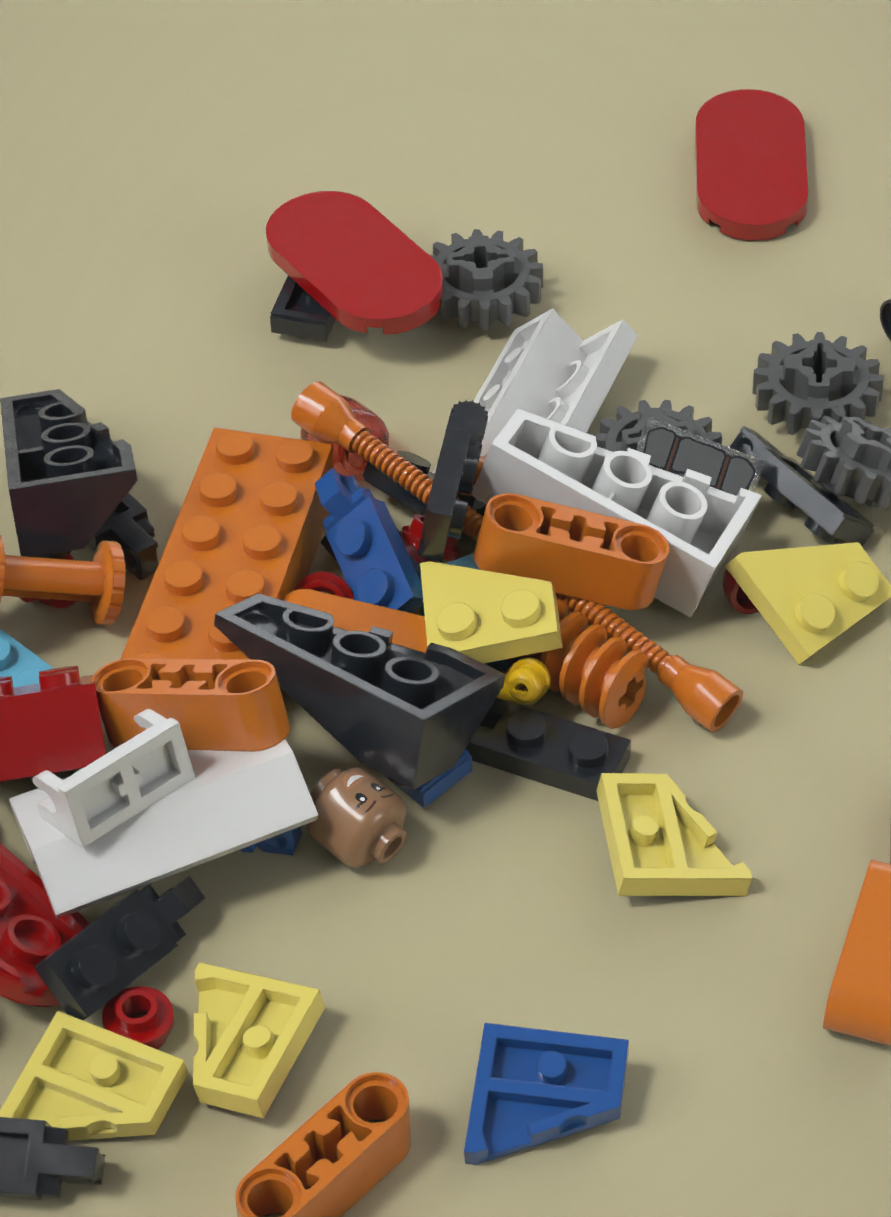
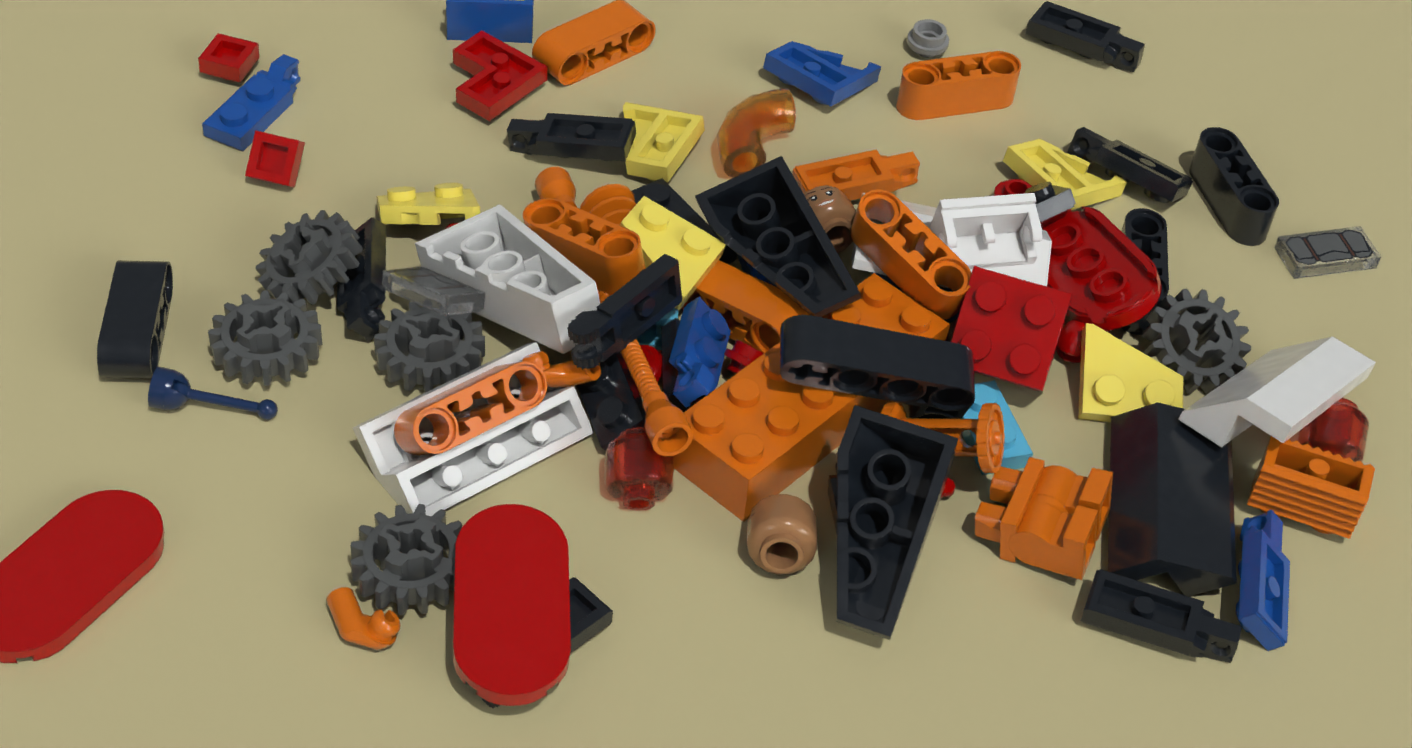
camera: 155 degrees left, 0 degrees up
(139, 560) = (879, 364): none -> black beam
(163, 445) = (782, 534): none -> medium nougat head
(248, 1036) = (960, 157): light yellow wing -> none
(371, 919) = (860, 173): none -> orange hinge
(468, 222) = (358, 628): none -> orange arm
(544, 371) = (453, 431): none -> orange beam
(561, 911) = (749, 124): none -> clear orange cylinder
(753, 769) = (573, 136): none -> black hinge
(843, 311) = (174, 390): none -> dark blue hinge

